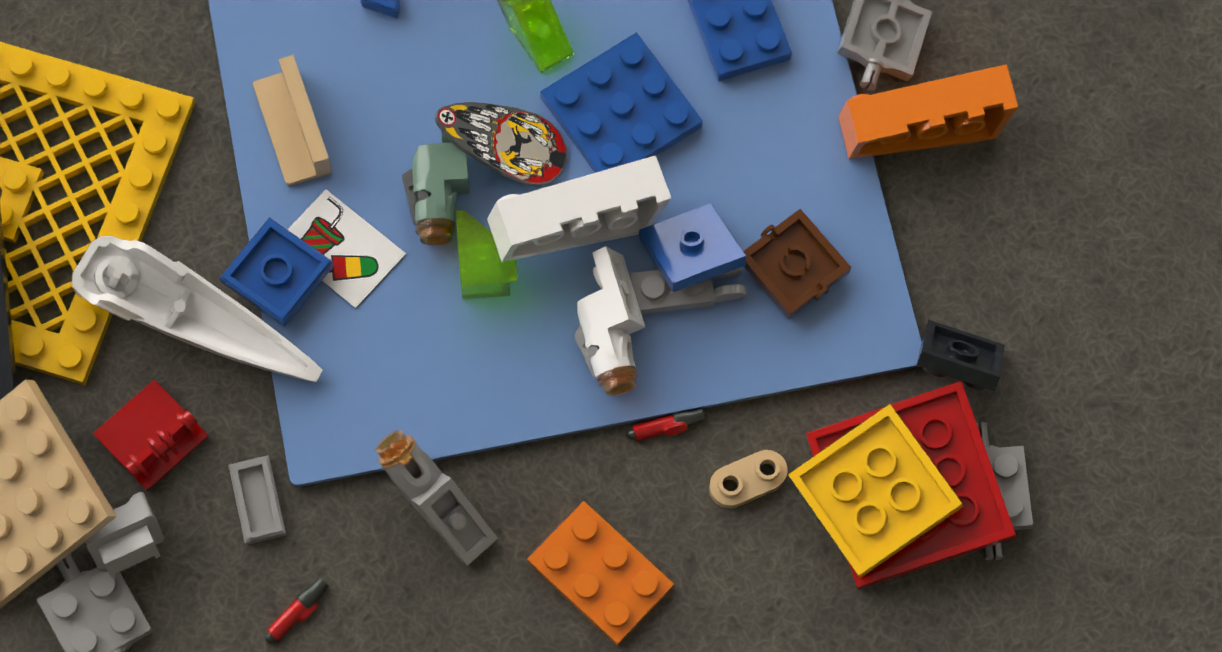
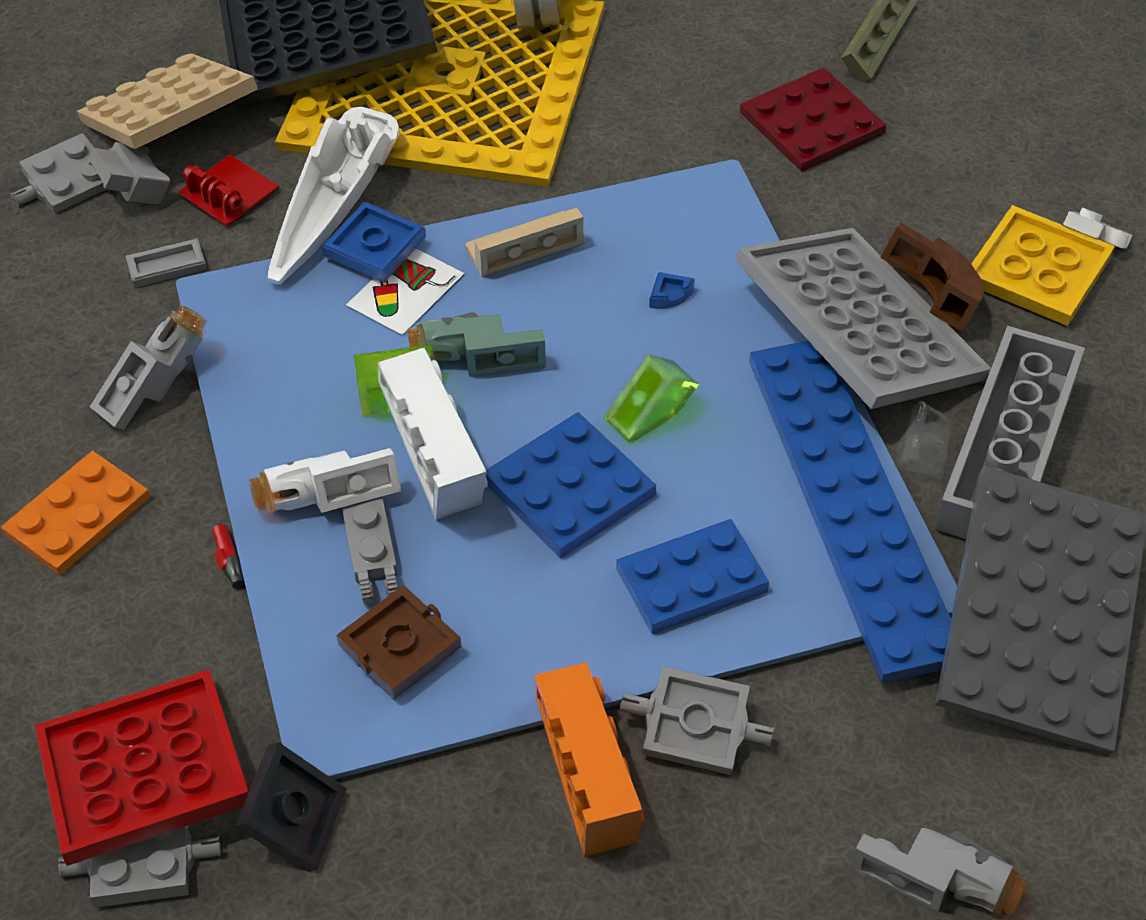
camera: 90 degrees right, 20 degrees down
(299, 610) = (62, 300): piece -> none
(506, 140) = (515, 384): shield -> none
(692, 247) = (408, 543): plate -> none
(749, 479) = (164, 625): tan plate -> none
(875, 490) = (128, 720): yellow plate -> none

